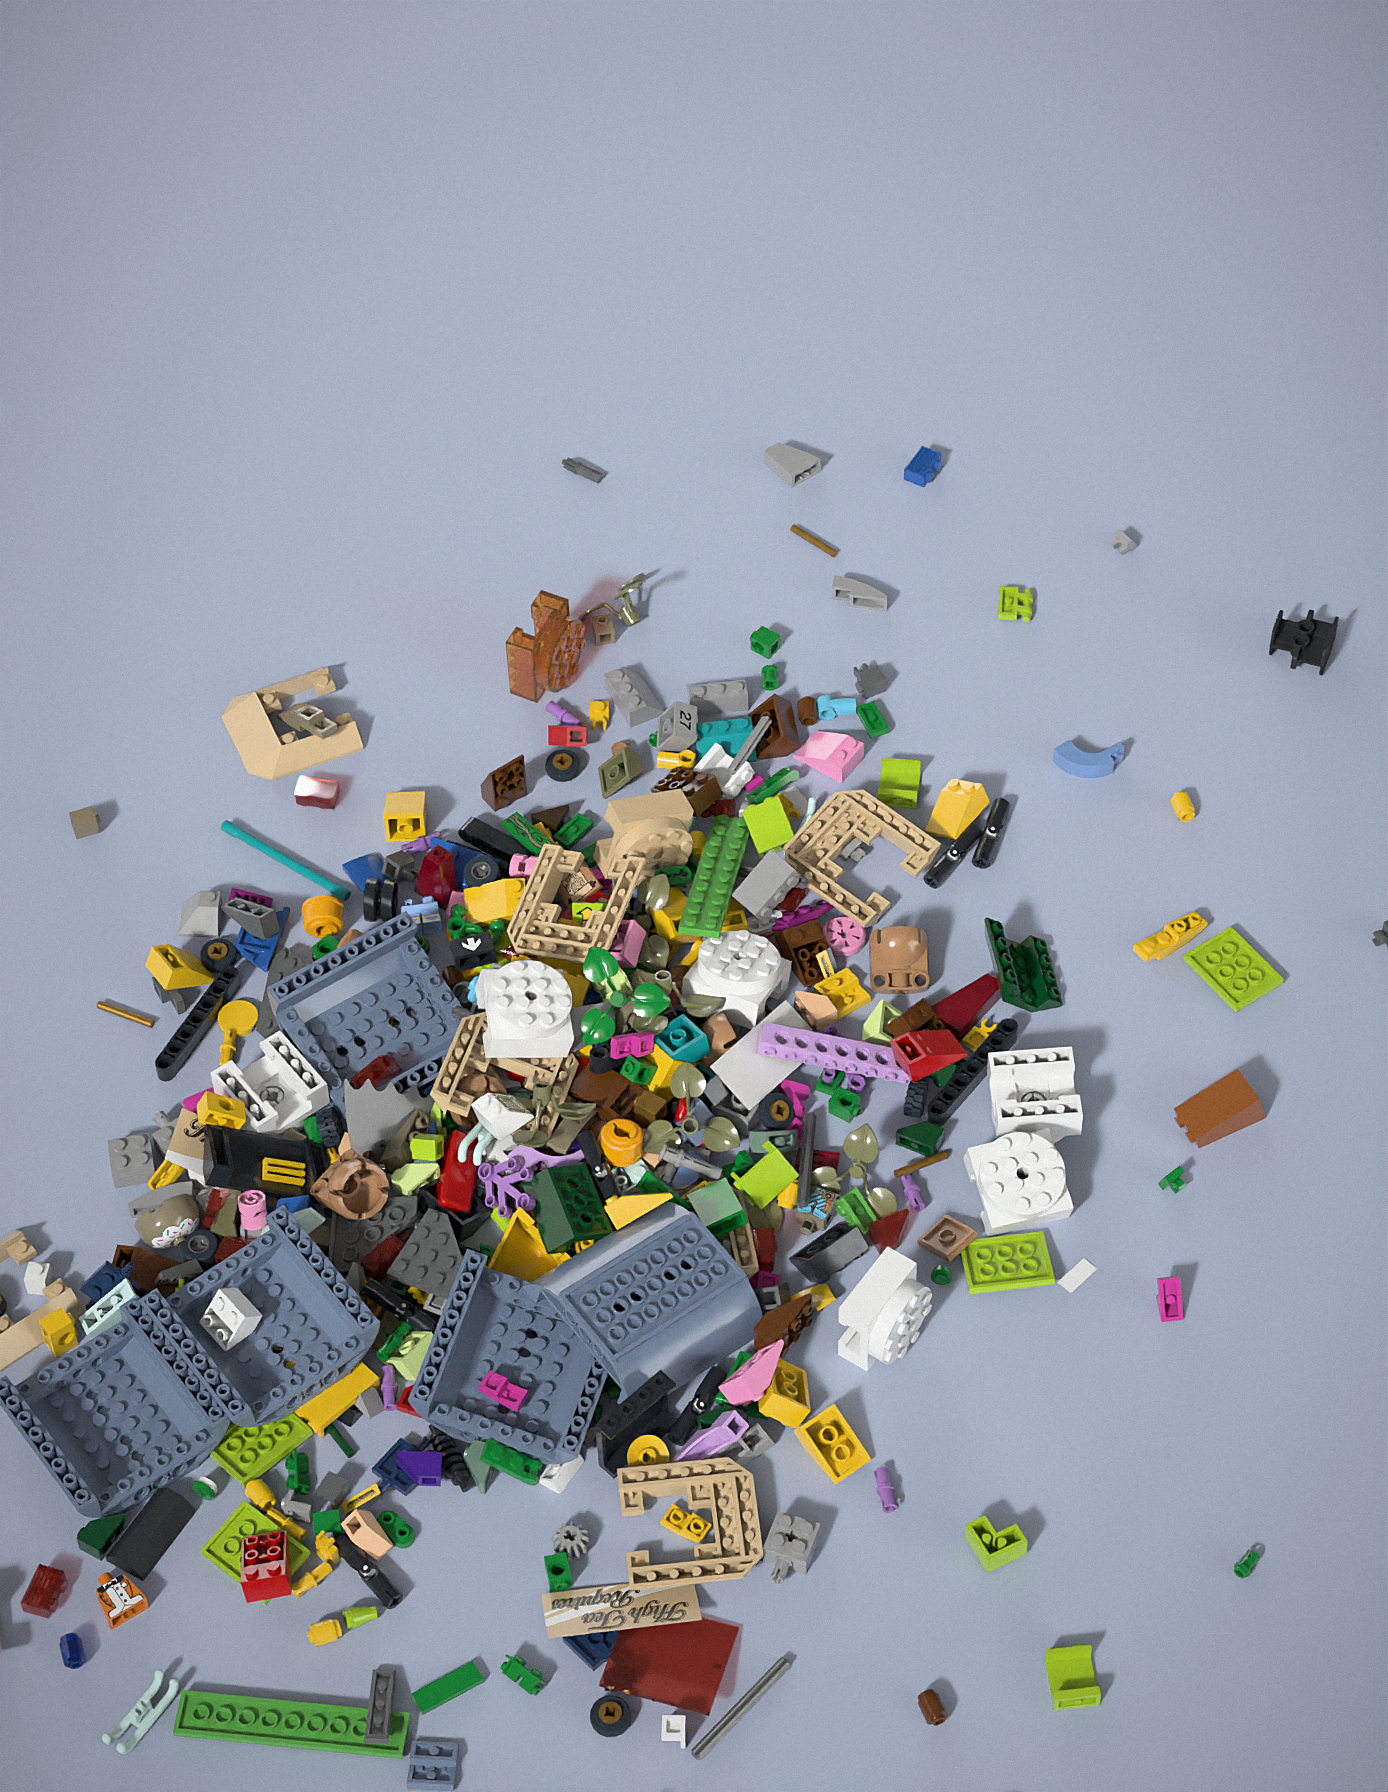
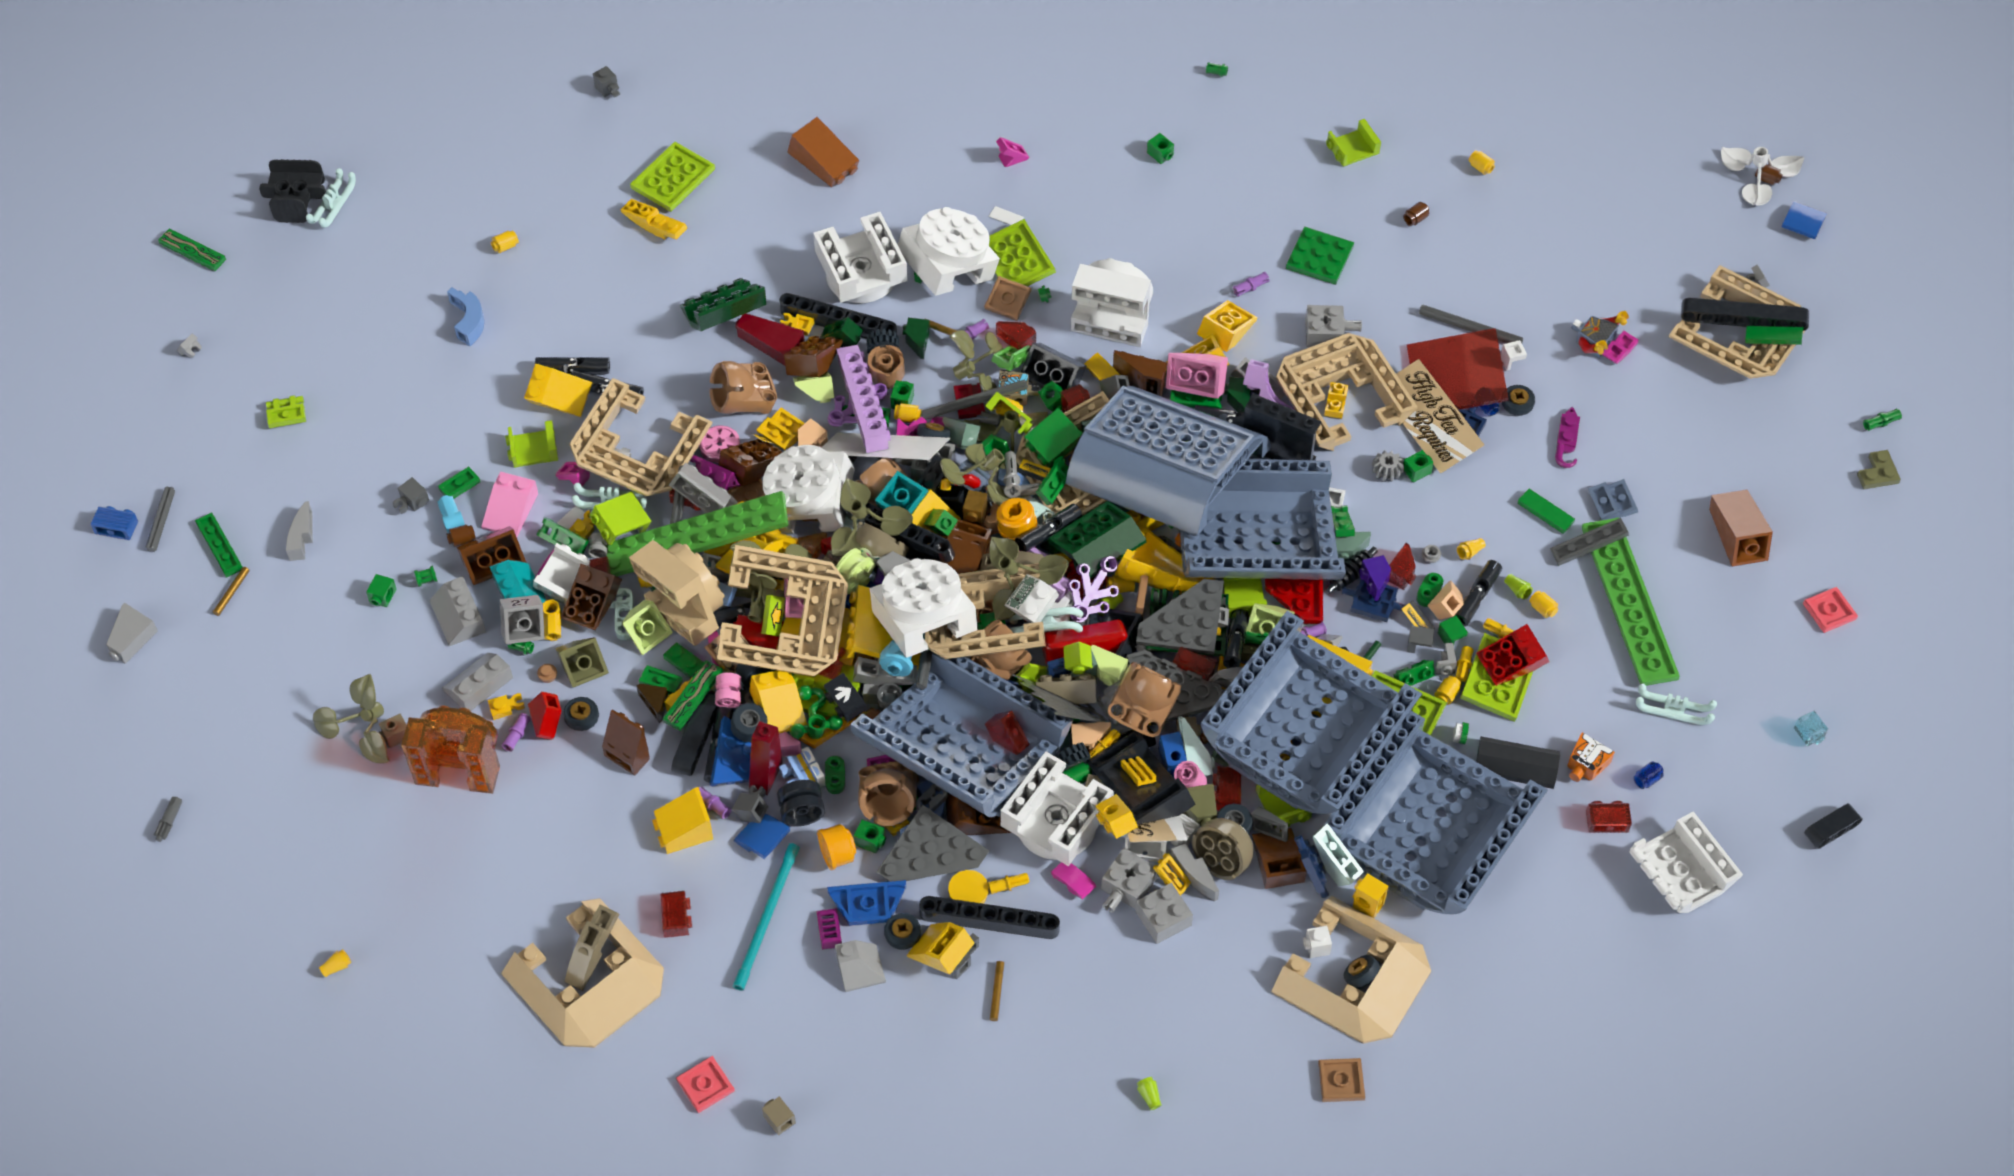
camera: 110 degrees left, 5 degrees up
(101, 1535) = (1549, 800): dark green slope -> none
(145, 785) = (705, 1084): none -> coral tile
(214, 1203) = (1197, 815): clear red plate -> none
(230, 1317) = (1313, 746): white slope -> none
(254, 918) = (857, 906): dark grey slope -> none
(326, 1549) = (1475, 625): yellow plate -> none
(385, 560) = (335, 963): none -> yellow cone
(428, 1586) = (1468, 549): none -> yellow cone
(430, 1507) = (1403, 568): none -> clear red slope
(439, 1540) = (1431, 549): none -> light grey plate
(479, 1233) = (1140, 604): none -> medium nougat tile
(503, 1392) = (1286, 536): dark pink slope -> none
(531, 1678) = (1513, 458): green hinge -> none
(541, 1753) = (1567, 437): none -> magenta plate
(630, 1207) = (1083, 480): yellow slope -> none
(633, 1044) = (927, 521): dark pink slope -> none
(649, 998) = (871, 543): green plant -> none
(676, 871) = (712, 565): green beam -> none
(749, 744) = (529, 557): light grey axle -> none
(789, 1239) = (1047, 392): none -> green brick
(819, 1103) = (907, 412): none -> yellow brick
(871, 538) = (219, 544): none -> green tile
(886, 1095) = (886, 365): none -> medium nougat brick
(907, 1581) = (1320, 255): none -> green plate
(918, 500) = (160, 519): none -> dark grey axle
(926, 1052) = (847, 331): red slope -> none
(995, 1548) = (1272, 204): lime brick -> none
(1131, 1450) = (1160, 148): none -> green brick
(1173, 1180) = (897, 172): green tile -> none
(1256, 561) = (192, 249): none -> green tile
(1287, 675) = (332, 200): none -> light aqua piece

